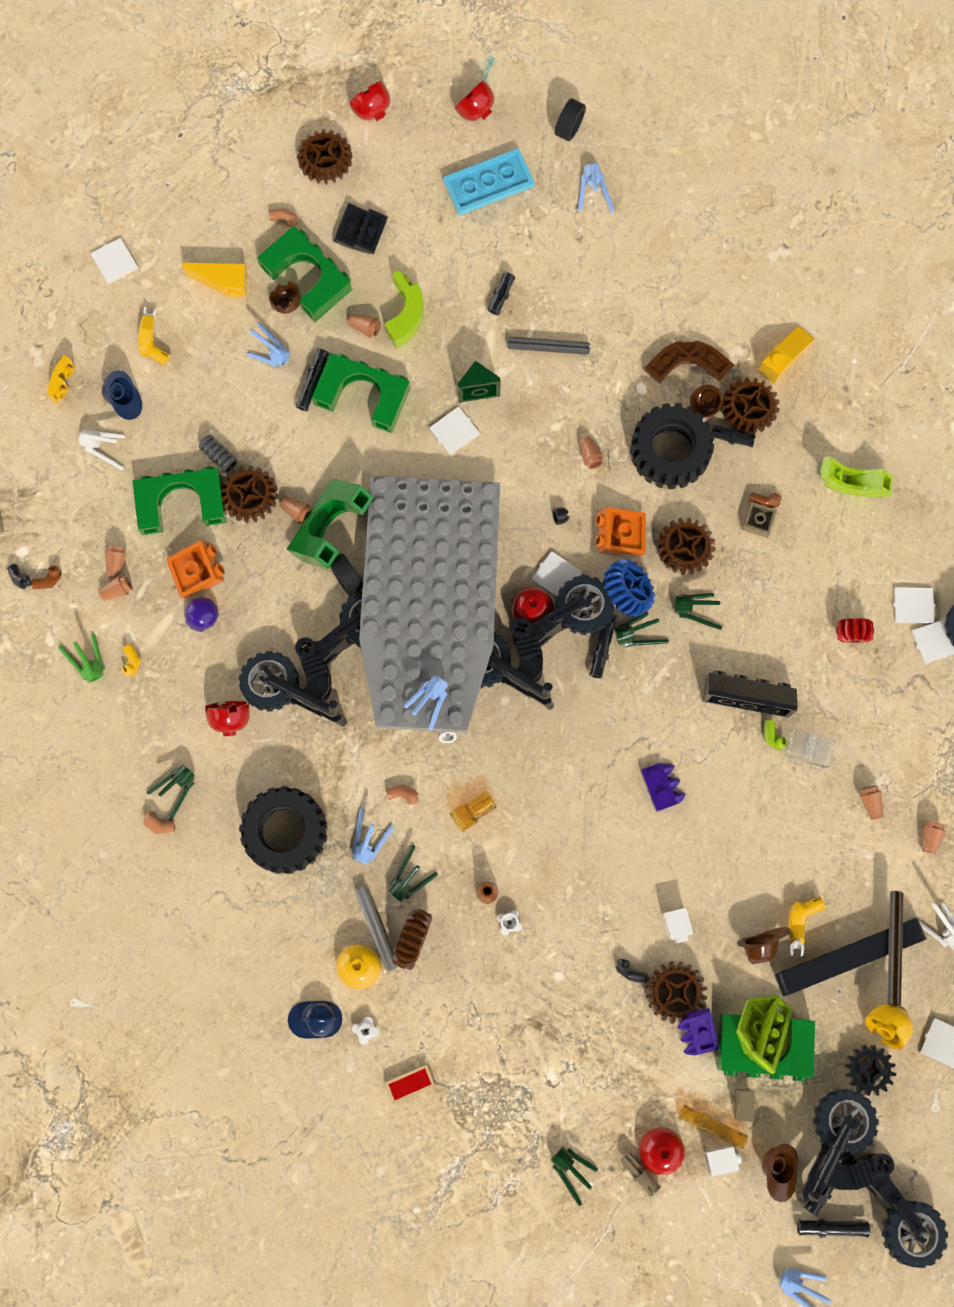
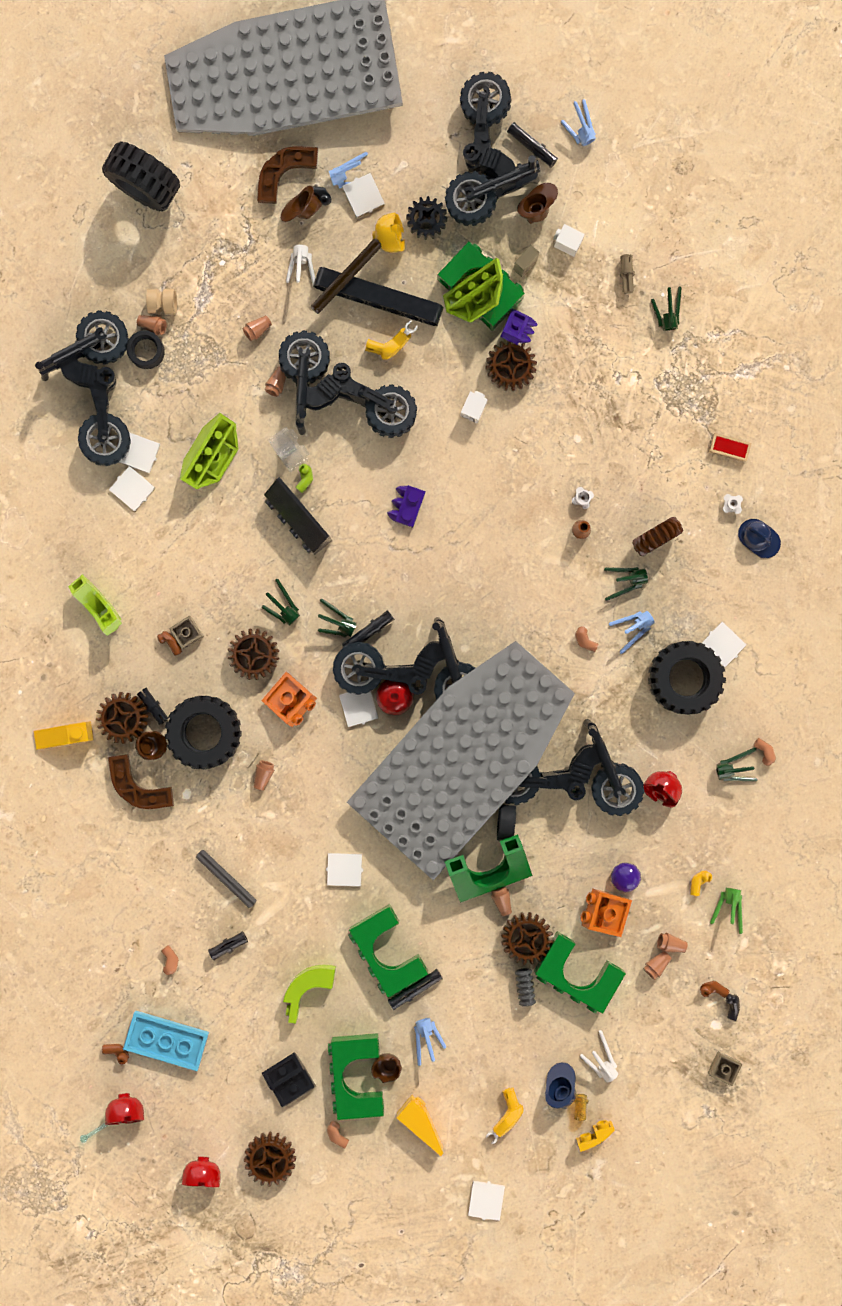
camera: 140 degrees left, 10 degrees up
(94, 397) = (580, 1107): none -> clear yellow pin
(272, 892) = (724, 643): none -> white piece
(358, 966) = (704, 549): yellow cylinder -> none
(365, 324) = (344, 1000): nougat cone -> none
(375, 928) = (673, 566): light grey axle -> none
(432, 689) = (516, 685): light blue plant -> none
(469, 813) = (554, 590): clear yellow piece -> none
(478, 384) = (301, 888): dark green slope -> none
(523, 145) = (117, 1050): none -> dark orange arm
(537, 245) = (171, 962): none -> nougat arm
(559, 515) = (321, 746): black hinge -> none
(570, 119) = (67, 1040): black tyre -> none
(592, 177) = (87, 982): light blue plant -> none
(629, 587) = (319, 654): blue gear -> none
(630, 974) = (531, 401): black arm -> none
(661, 1151) = (601, 276): red cylinder -> none
(704, 1122) = (558, 268): clear yellow pin -> none
(764, 945) = (429, 349): reddish brown piece -> none
(818, 835) = (341, 386): none -> piece
(855, 630) = (189, 501): red gear -> none
(874, 687) = (210, 453): none -> lime wedge

